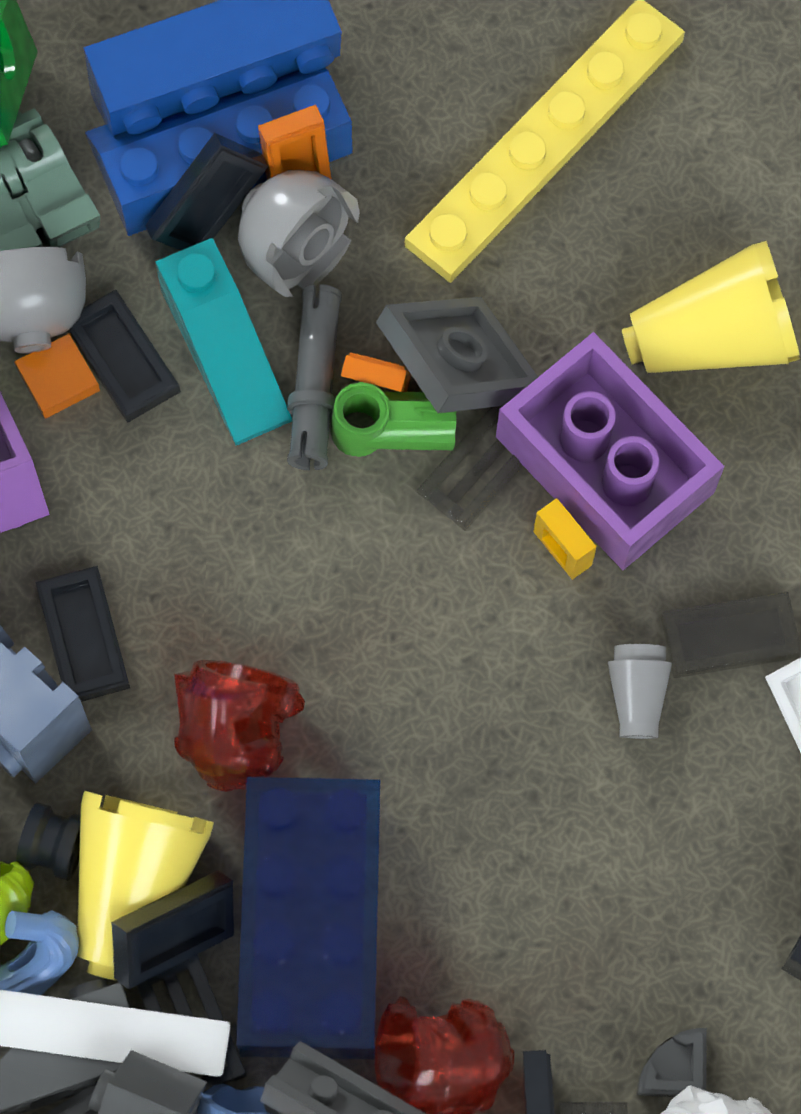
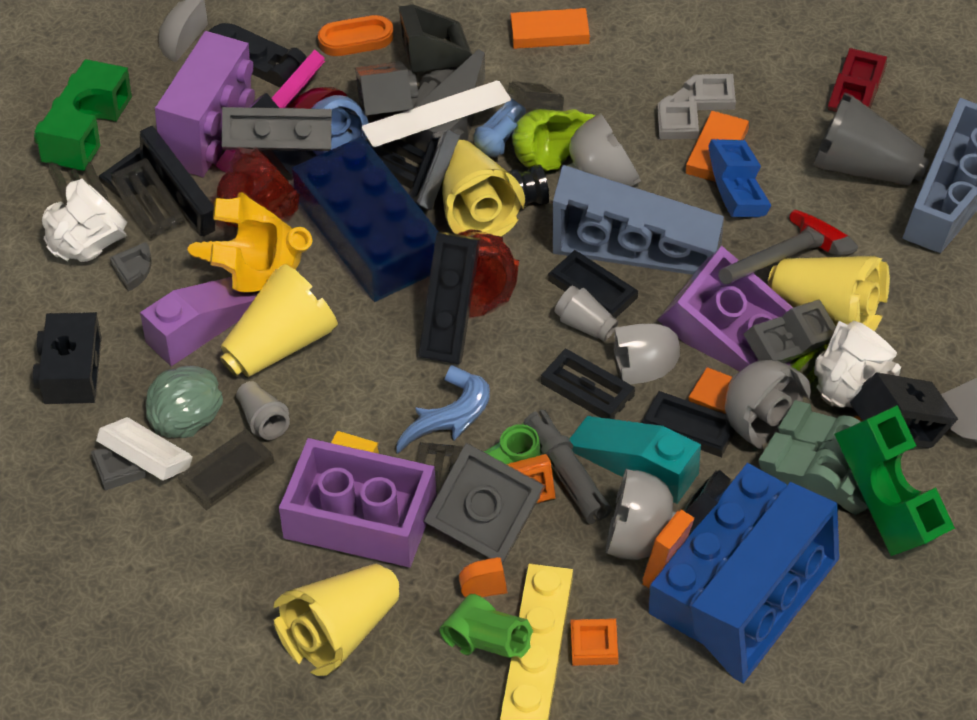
camera: 150 degrees right, 20 degrees down
(102, 479) = (645, 352): none -> light grey brick
(131, 583) = (585, 313): none -> light grey cone
(220, 531) = (582, 390): none -> black tile
(305, 668) = (449, 297): none -> black tile
(399, 533) = (455, 416): none -> medium blue piece
(440, 147) = (594, 642): none -> orange tile
(499, 935) = (259, 246): none -> yellow piece
(518, 281) = (483, 578): none -> orange tile
(547, 796) = (276, 324): none -> light yellow cone
(565, 221) = (482, 627): none -> bright green piece
(629, 898) = (192, 317): none -> medium lavender slope
(733, 765) = (182, 401): none -> sand green hair

